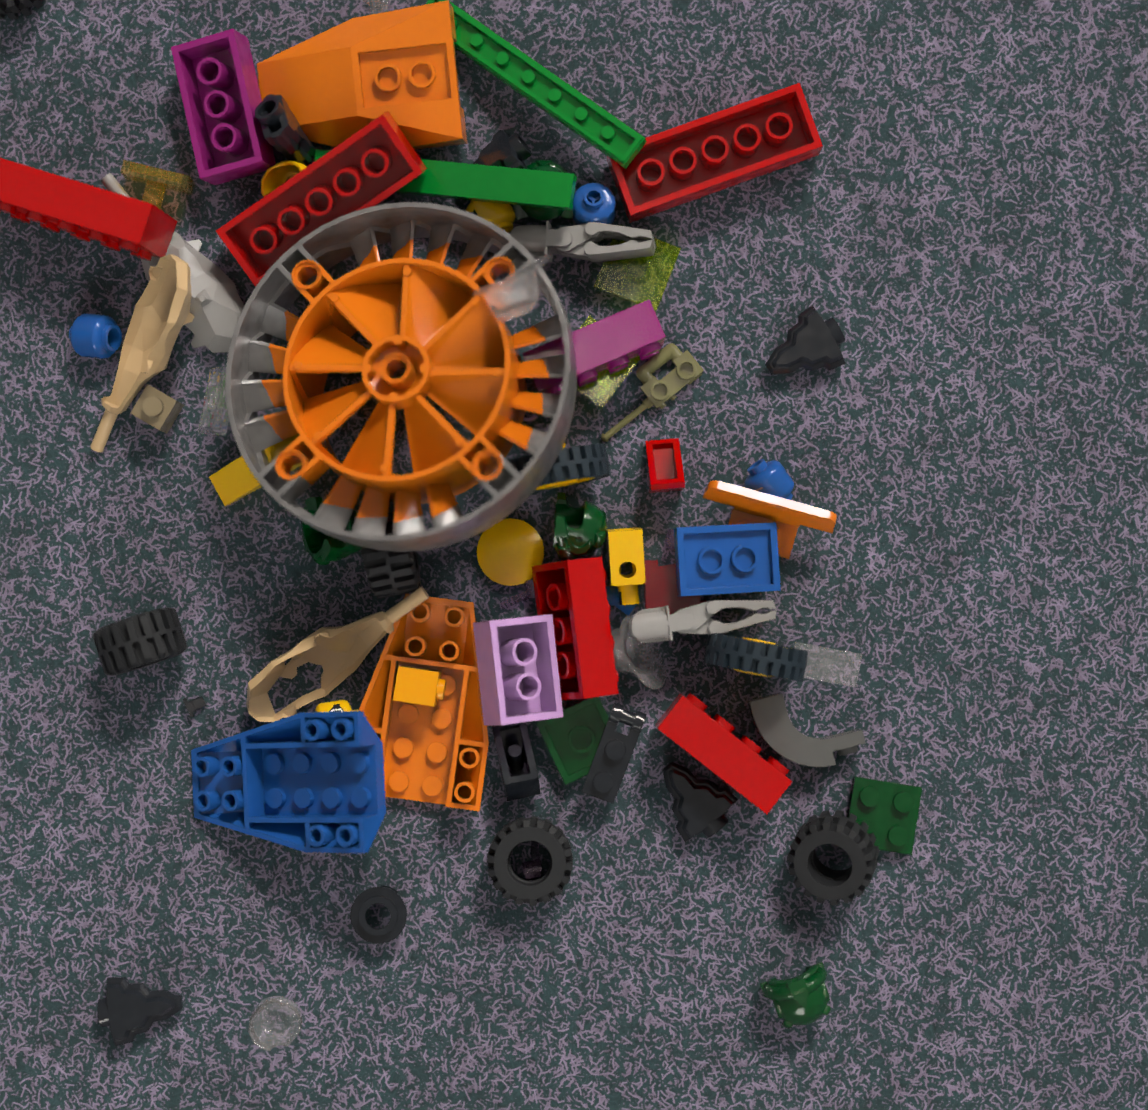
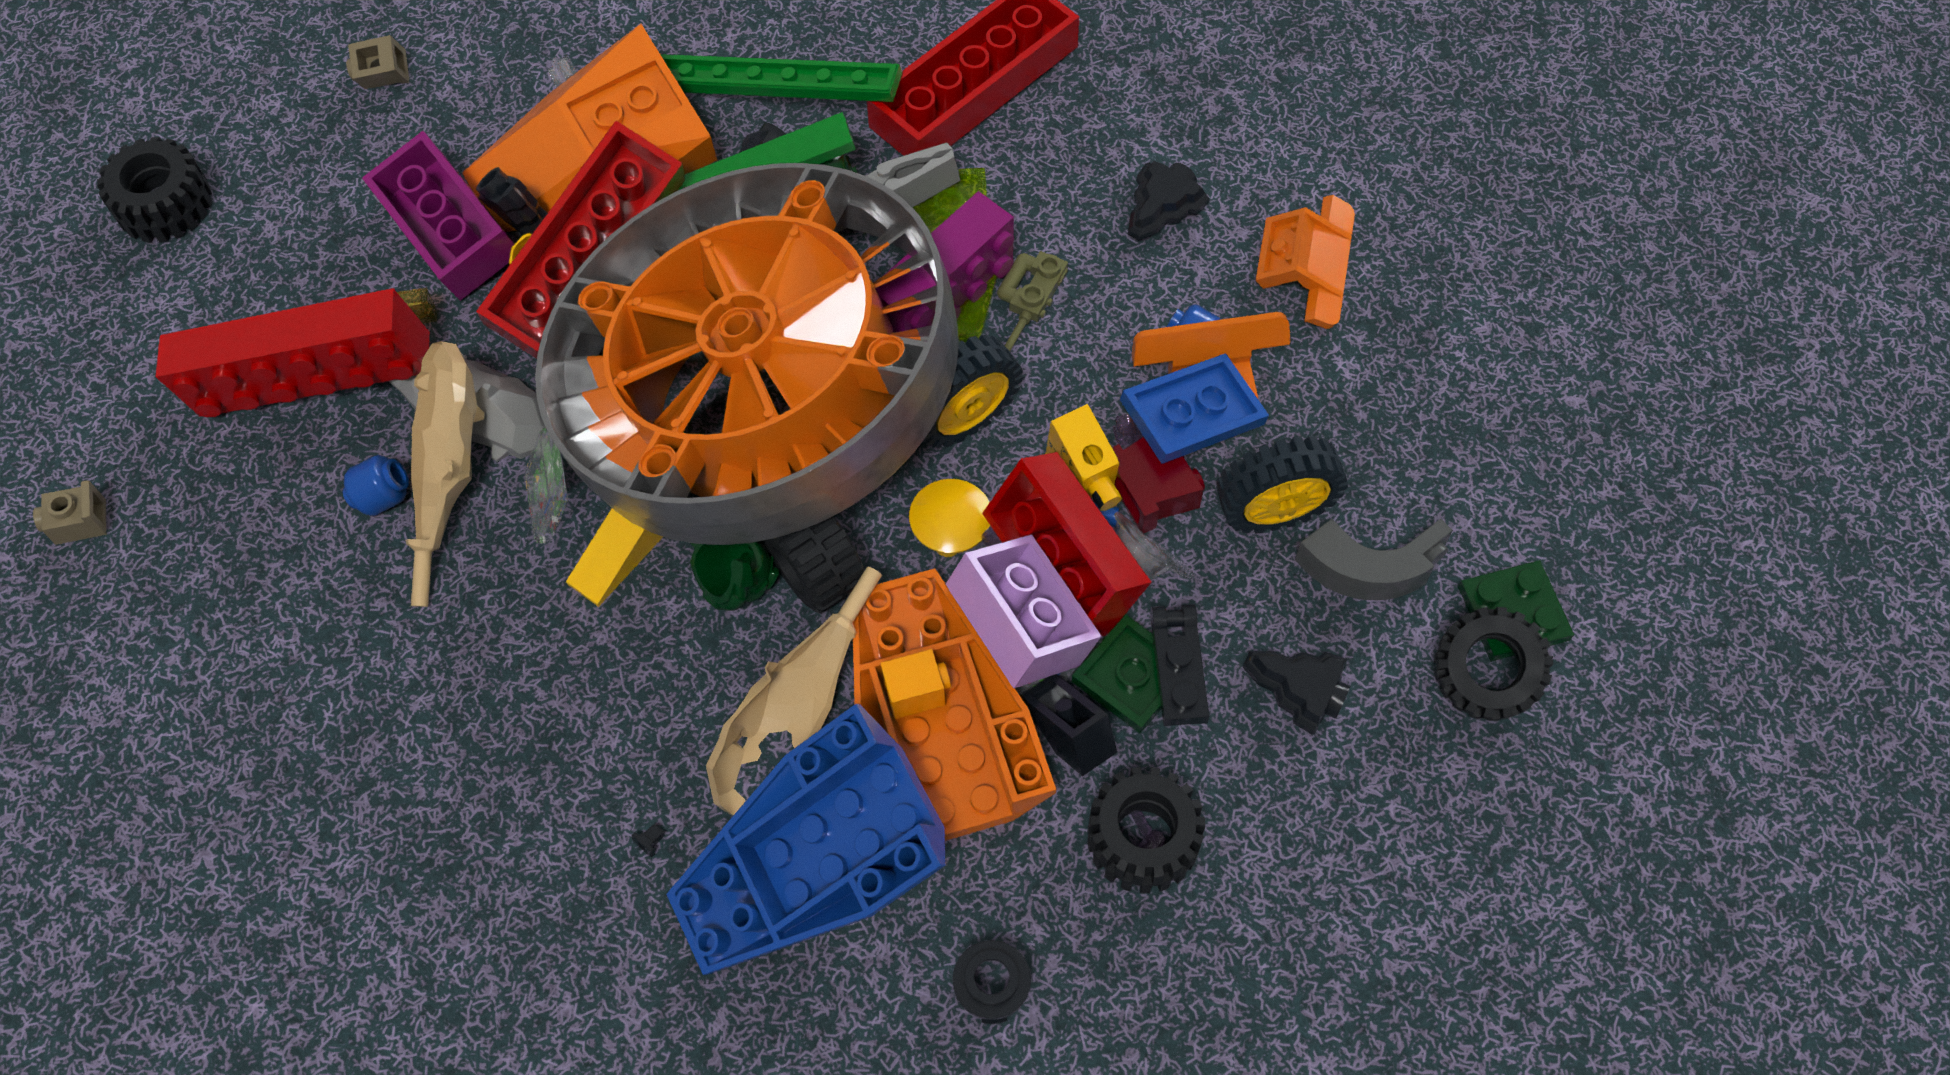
camera: 25 degrees left, 25 degrees down
(139, 641) = (550, 774): black tyre -> none
(157, 409) = (476, 528): dark tan brick -> none
(514, 294) = (830, 183): clear piece -> none
(577, 529) = (1023, 439): dark green helmet -> none
(594, 204) = (873, 150): blue head -> none
(658, 624) = (1195, 472): light grey arm -> none
(664, 465) = (1079, 366): red slope -> none
(723, 753) = (1304, 605): red brick -> none
(800, 998) = (1550, 841): dark green helmet -> none
(831, 664) = (1370, 480): clear plate -> none
(898, 452) = (1310, 251): none -> orange plate

